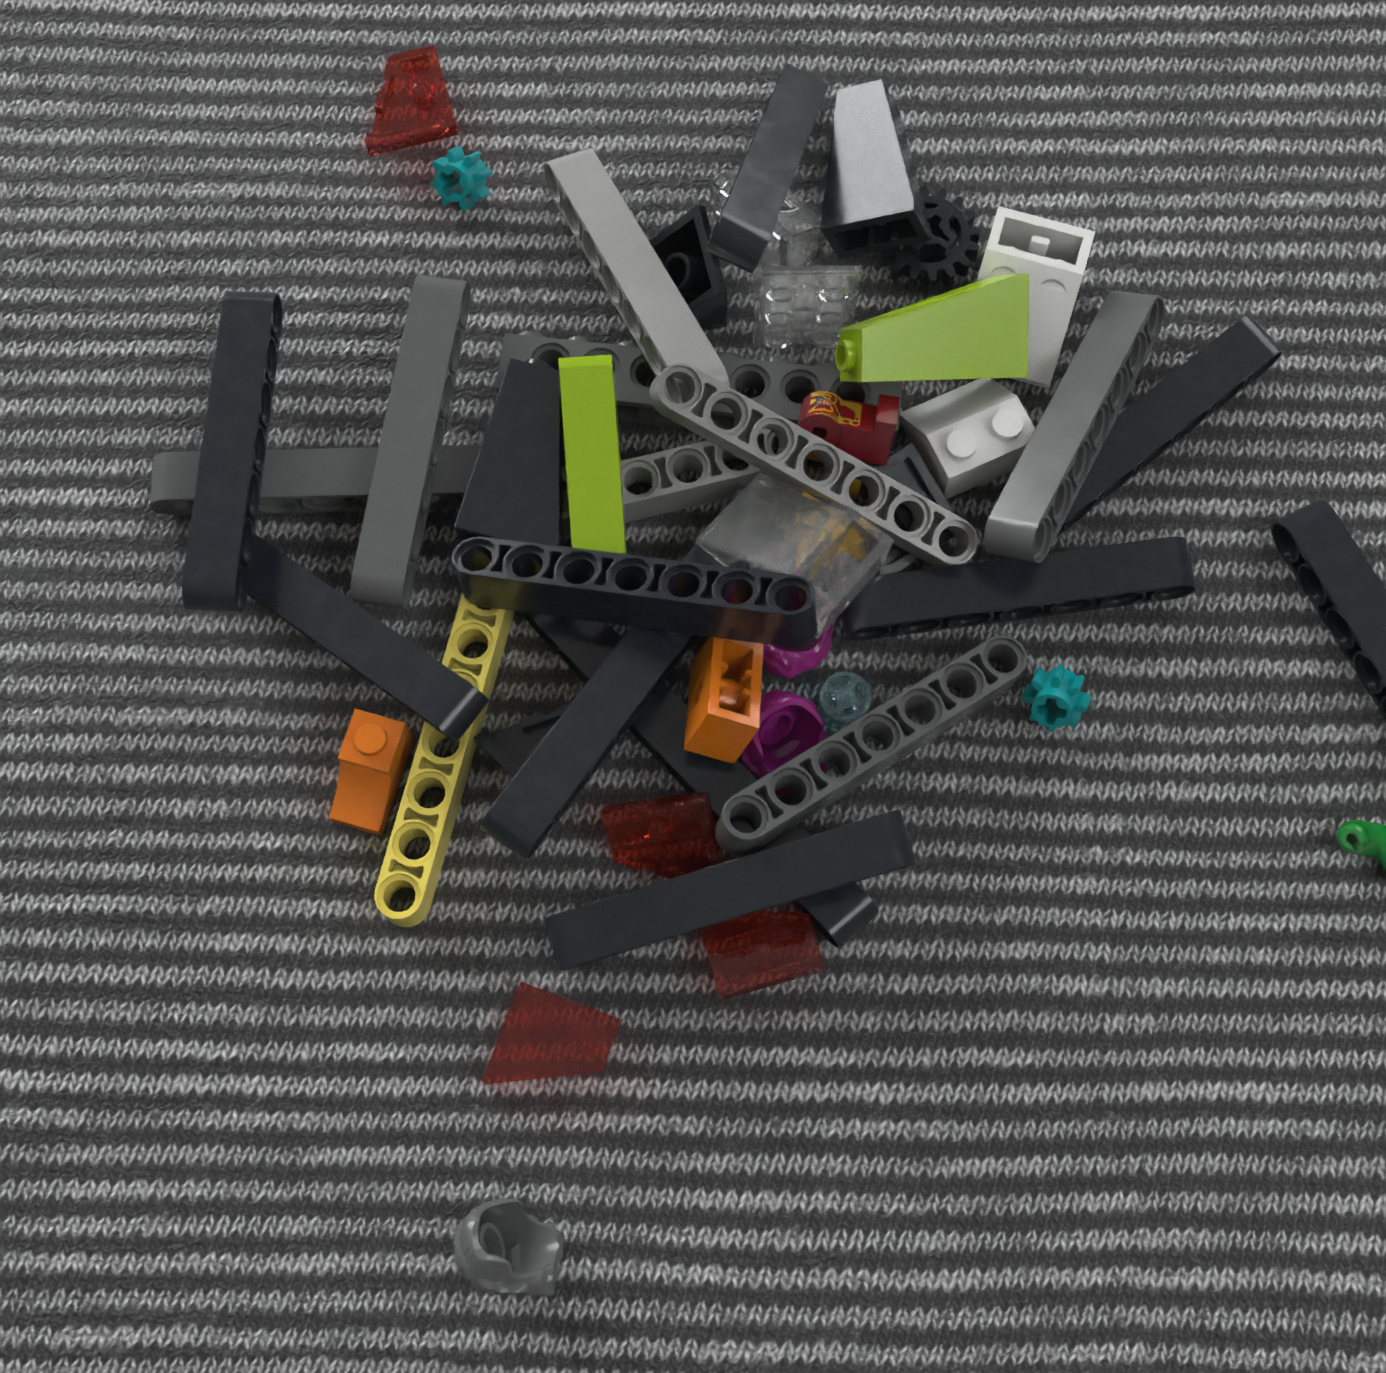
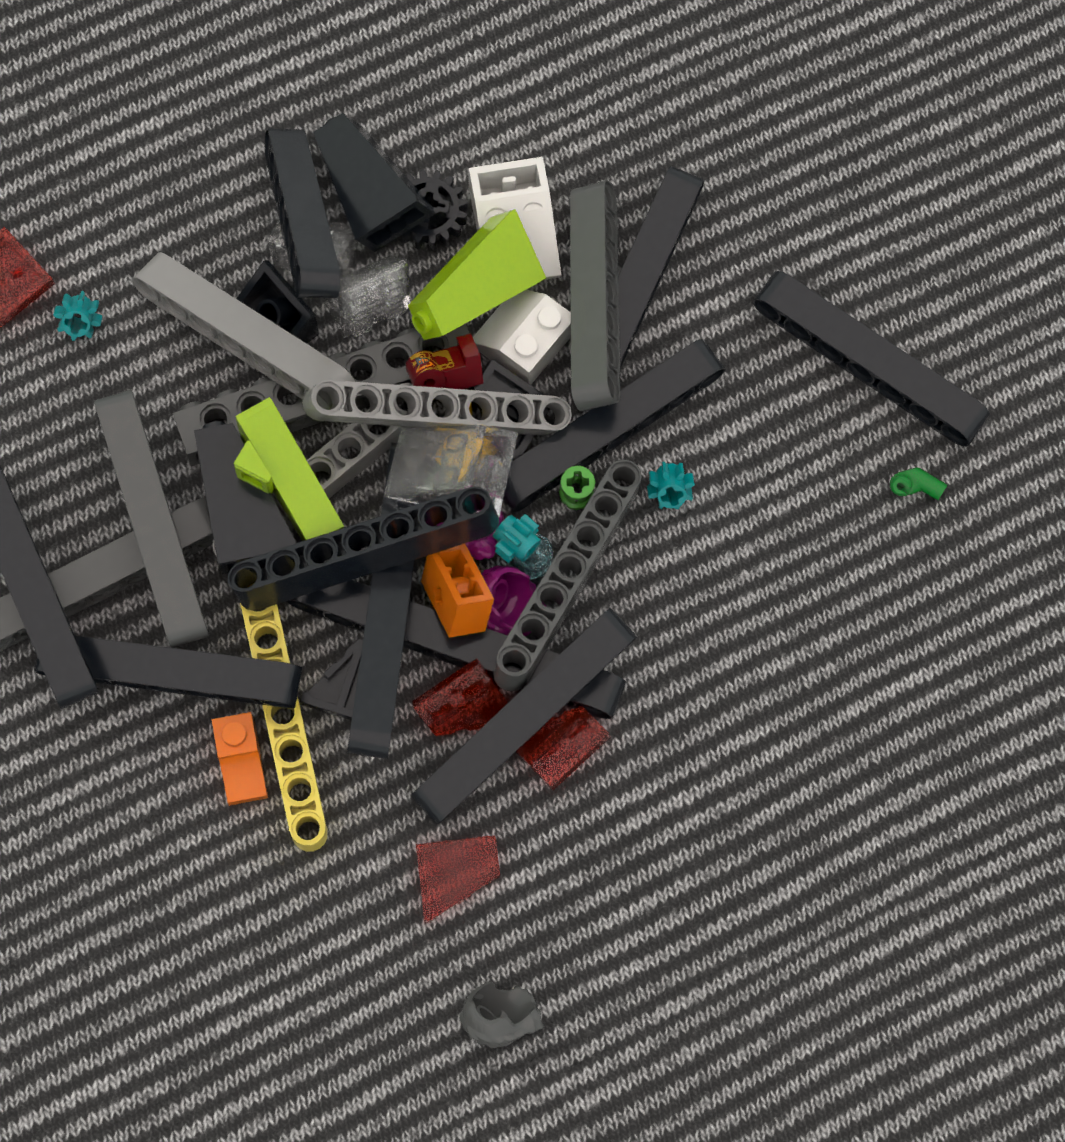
camera: 35 degrees left, 0 degrees up
(547, 432) = (252, 469): none -> lime slope
(830, 669) = (516, 538): none -> teal gear
(929, 633) = (587, 484): none -> bright green bush

